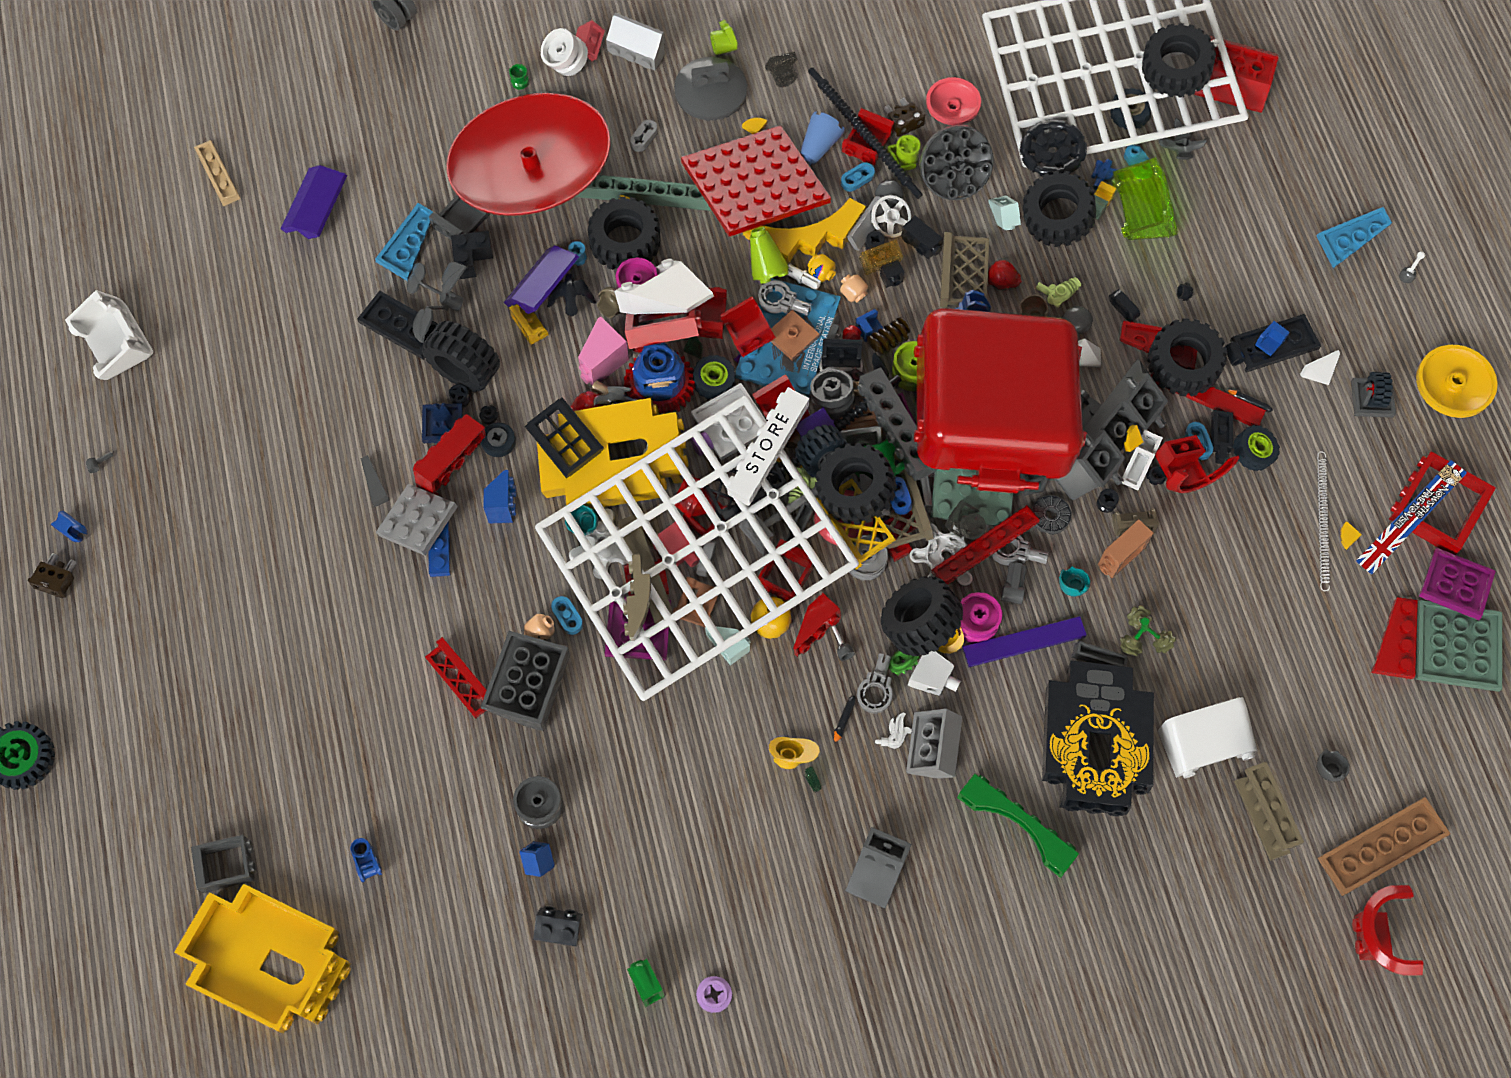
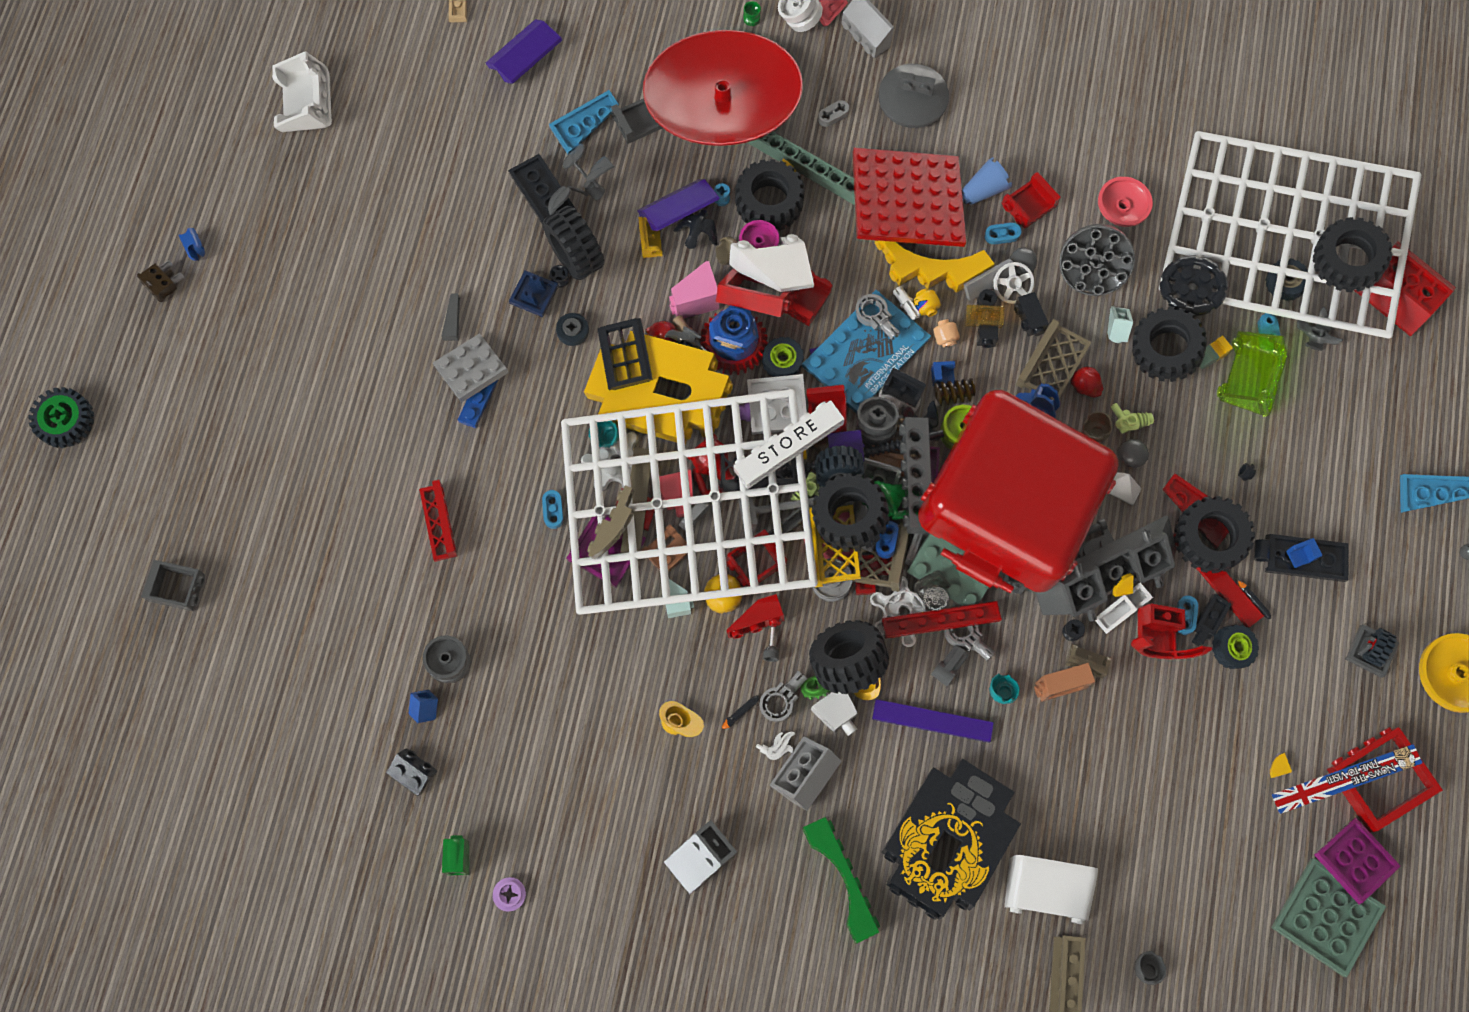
camera: 25 degrees right, 5 degrees up
(92, 463) = (237, 198): dark grey hand -> none
(233, 943) = (148, 655): yellow panel -> none
(366, 863) = (285, 639): blue piece -> none
(448, 454) = (522, 323): red wedge -> none
(471, 248) = (629, 150): black brick -> none
(489, 419) = (576, 307): black plate -> none
(499, 499) = (545, 382): blue slope -> none
(526, 680) = (489, 549): dark grey slope -> none
(539, 627) = (522, 510): light nougat head -> none
(694, 347) = (780, 323): tile -> none
(723, 39) = (947, 55): lime piece -> none
(747, 326) = (834, 326): red panel -> none
(754, 125) = (936, 146): yellow tile -> none
(765, 257) = (881, 271): lime cone -> none
(782, 69) = (986, 105): clear smoke piece -> none
(793, 335) = (869, 351): nougat plate -> none
(812, 779) = (685, 752): clear green tile -> none
(827, 89) = (1015, 136): black hose -> none
(833, 331) = (907, 365): dark grey plate -> none
(852, 333) = (922, 374): red plate -> none
(906, 117) = (1074, 197): dark brown piece -> none
(906, 152) = (1057, 232): lime piece -> none
(980, 617) = (910, 673): dark pink wheel -> none
(1056, 505) = (1027, 615): tile -> none
(1098, 655) = (992, 766): dark grey piece -> none
(1102, 171) = (1230, 326): blue piece -> none
(1124, 305) = (1183, 459): black beam -> none
(1140, 620) = (1046, 750): olive plant -> none
(1156, 471) = (1126, 632): black plate -> none
(1321, 369) = (1337, 602): white slope -> none
(1323, 521) = (1285, 702): white piece -> none
(1398, 643) = (1270, 891): red wing -> none

